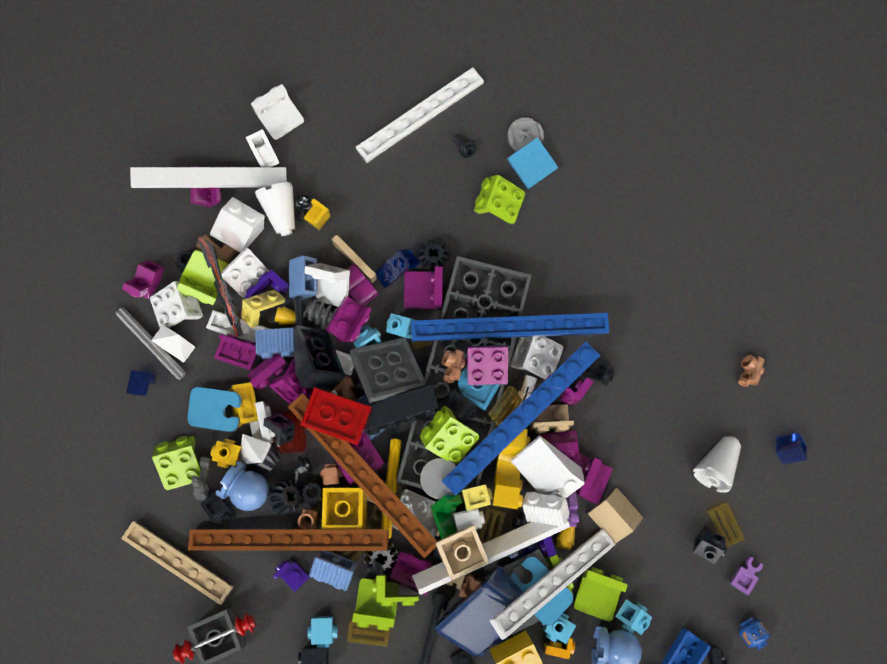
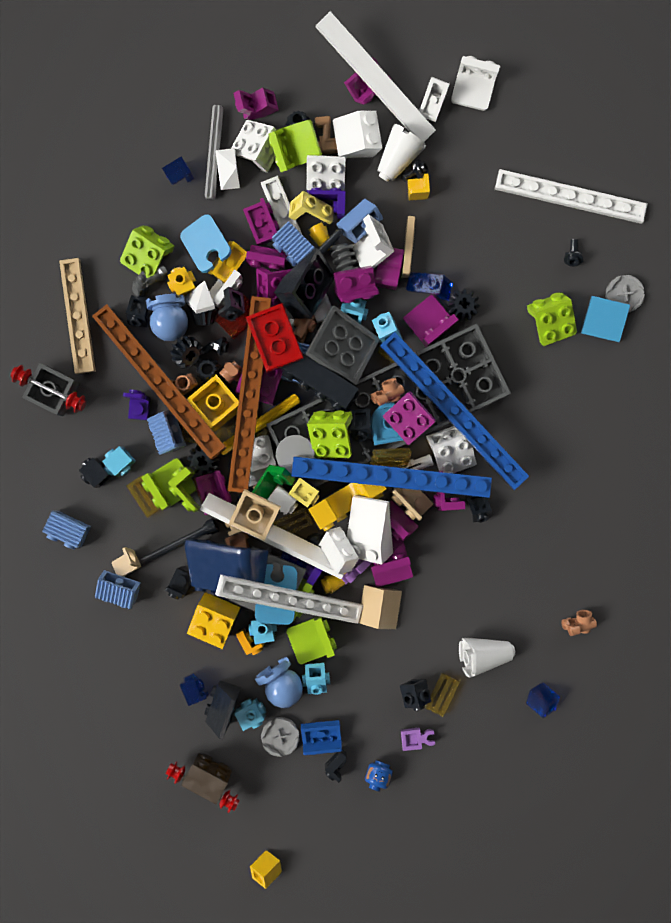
camera: 55 degrees right, 10 degrees up
(221, 285) = (300, 164): black sword -> none

